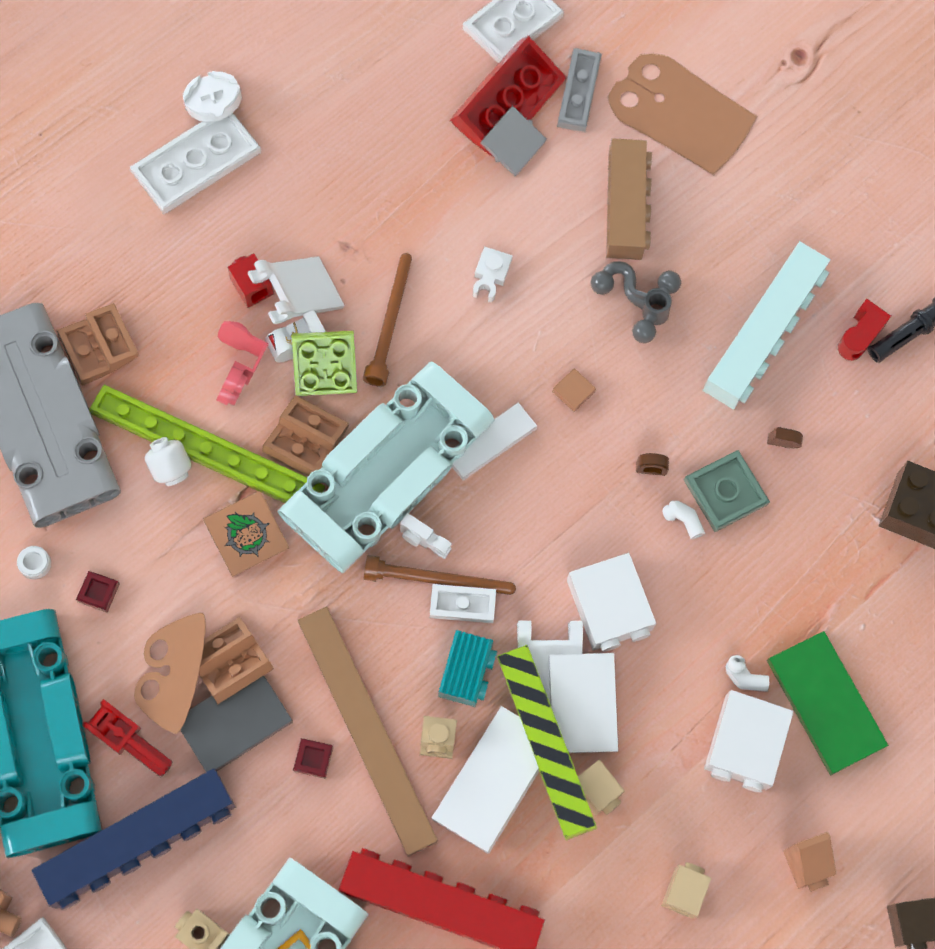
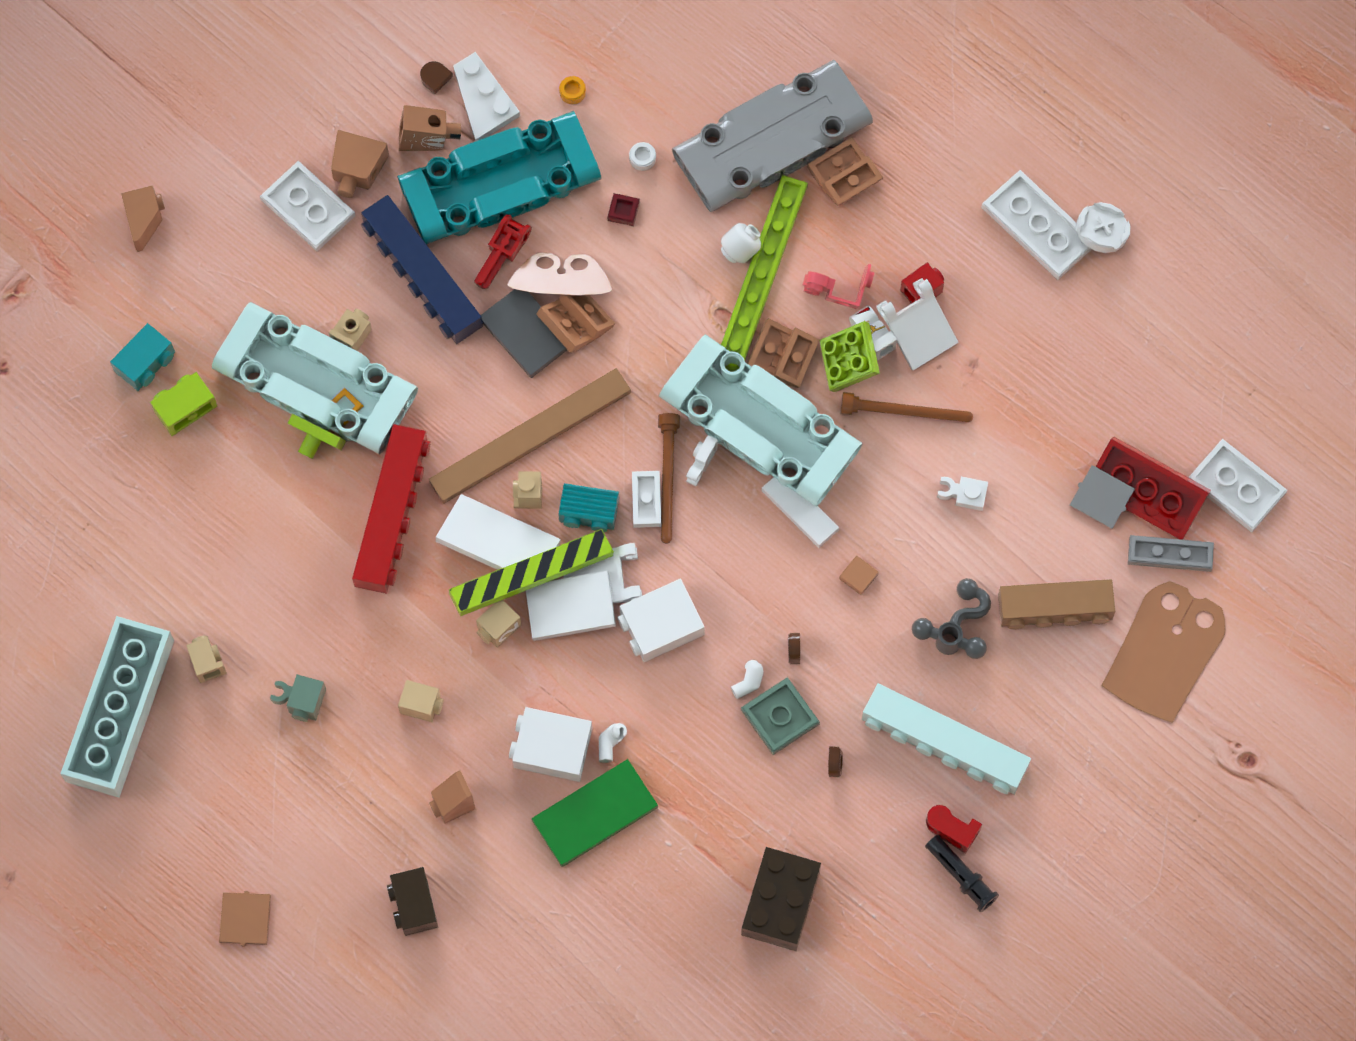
camera: 90 degrees right, 0 degrees up
(245, 533) = (687, 316): nougat slope -> none
(313, 758) = (501, 397): dark red tile -> none

